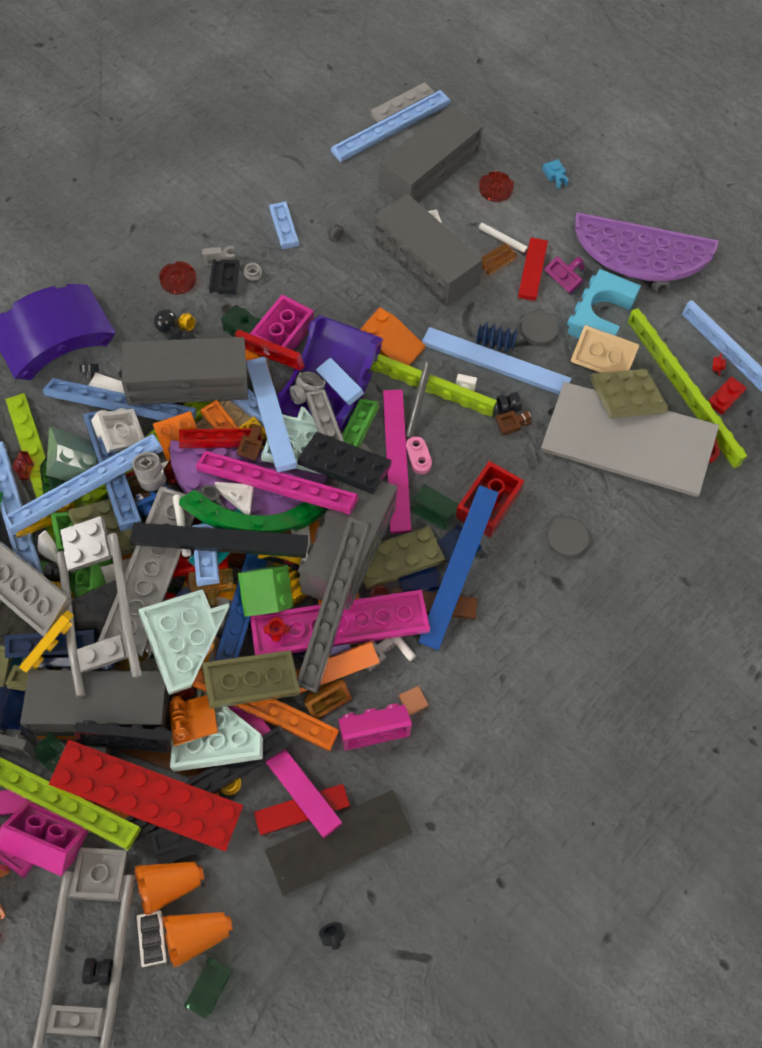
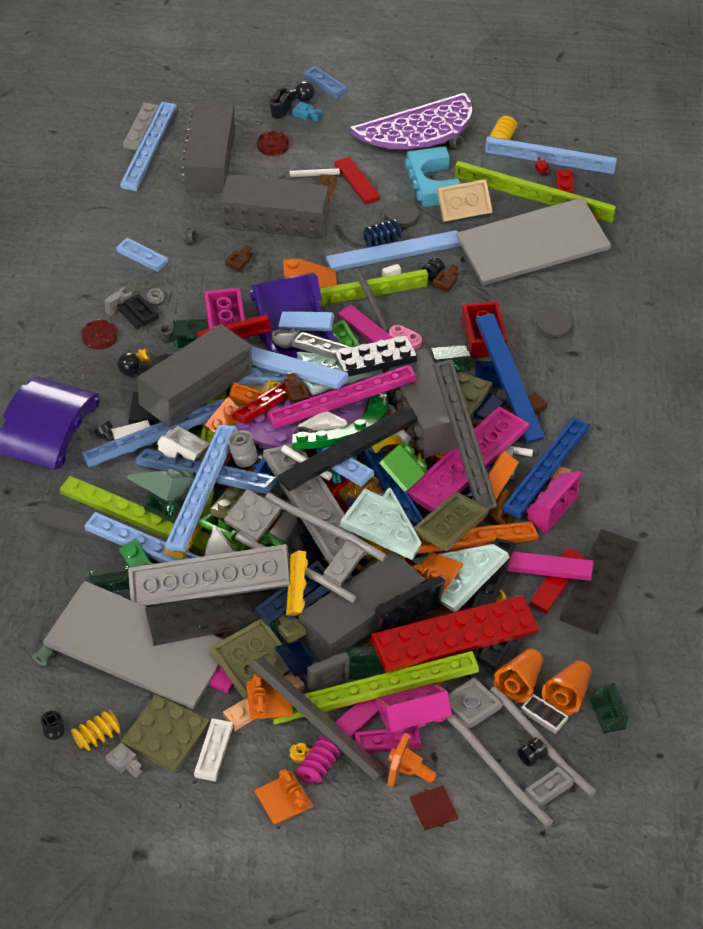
camera: 40 degrees left, 15 degrees down
(23, 465) = (130, 516): clear red plate -> none
(276, 622) = (434, 483): red plate -> none
(297, 394) = (285, 347): light grey tile -> none
(332, 935) = (651, 626): black tile -> none
(352, 281) = (239, 260): none -> reddish brown plate
(405, 685) = (546, 467): none -> blue tile
(544, 148) = (282, 98): none -> black beam
(565, 274) = (384, 170): magenta plate -> none
(602, 153) = (325, 82): none -> medium blue tile
(628, 393) = (507, 213): olive plate -> none
(717, 303) = (504, 128): none -> yellow piece

